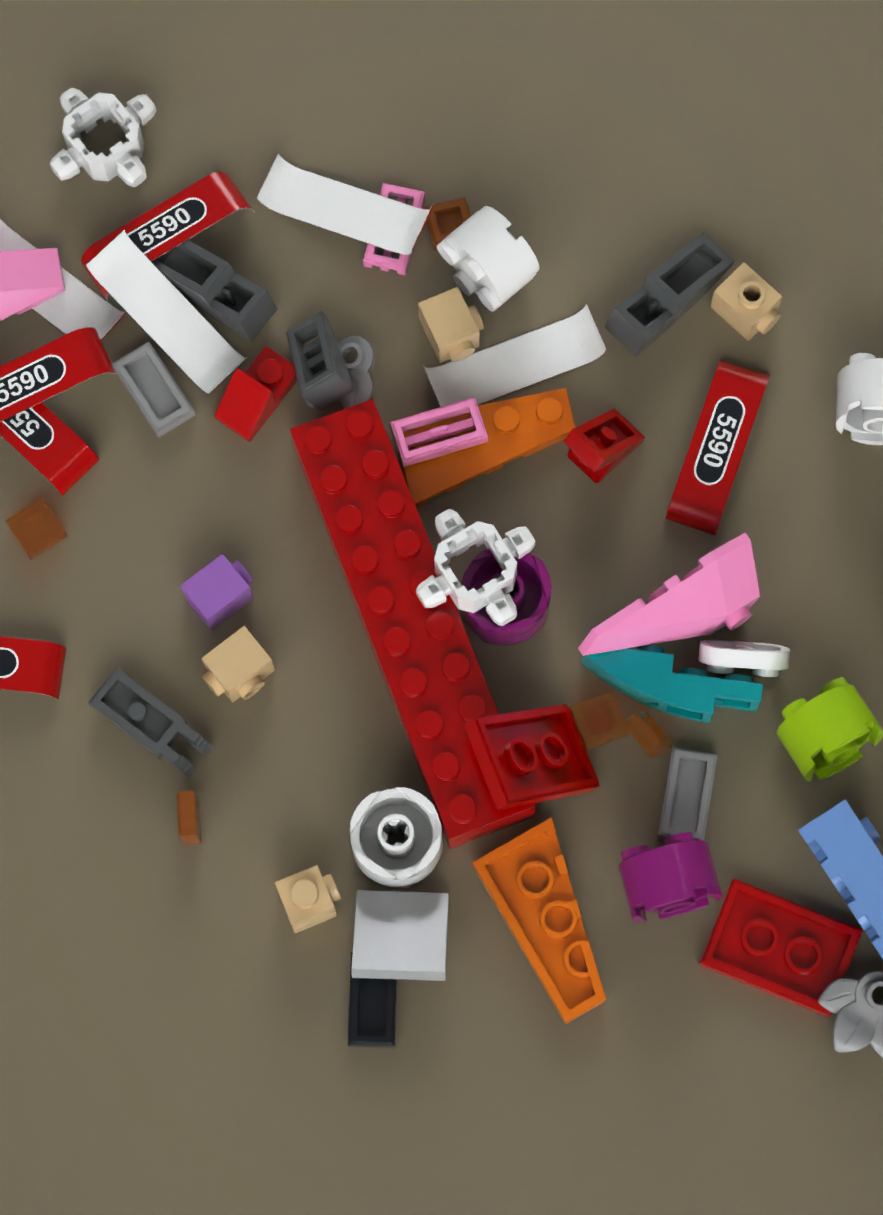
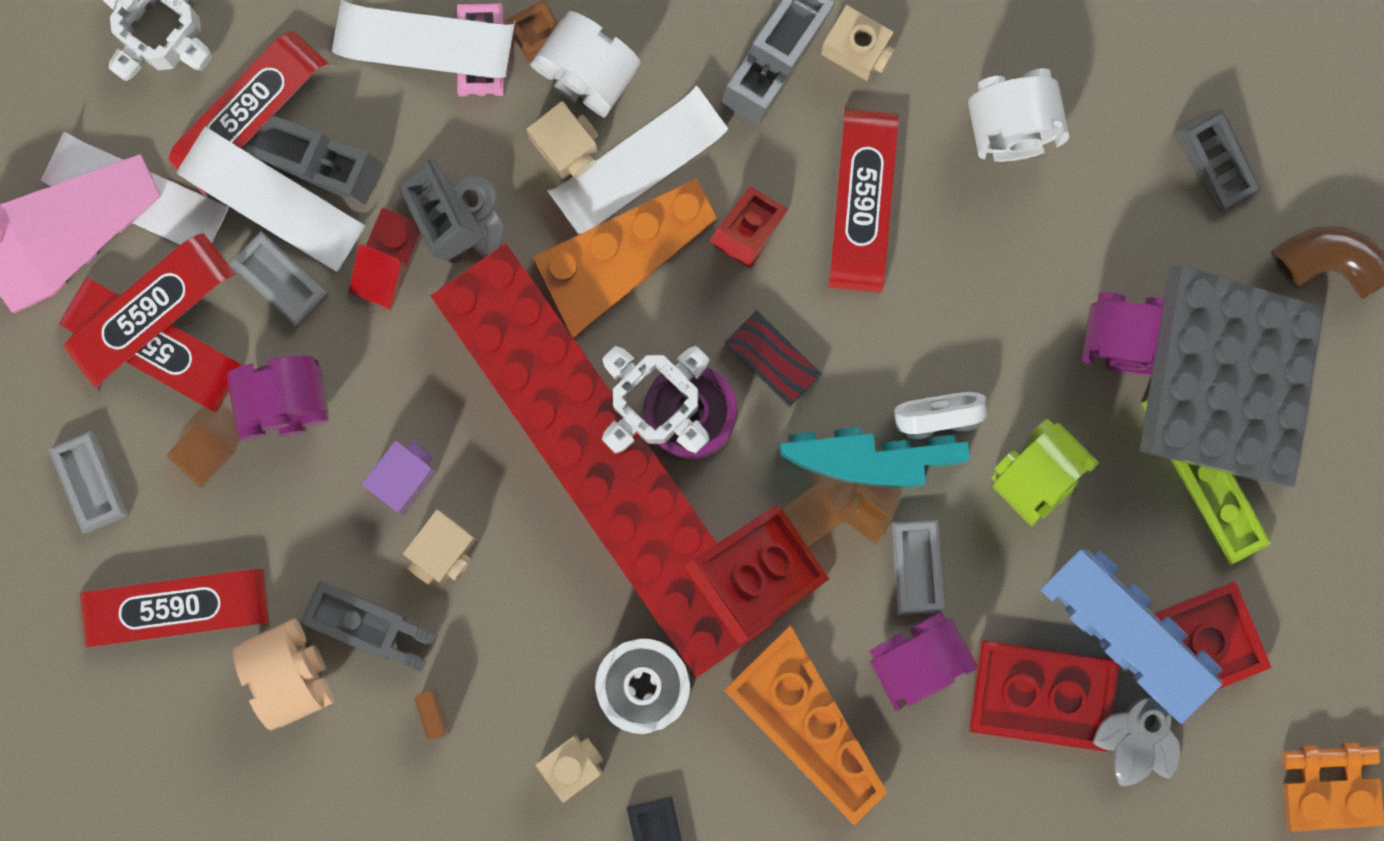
camera: 15 degrees left, 10 degrees up
(58, 742) = (282, 675): none -> light nougat brick
(124, 488) = (278, 396): none -> magenta brick
(400, 935) = (671, 781): tile -> none
(444, 447) = (589, 274): bright pink tile -> none
(596, 569) = (773, 358): none -> tile
(701, 603) = (884, 376): bright pink wedge -> none

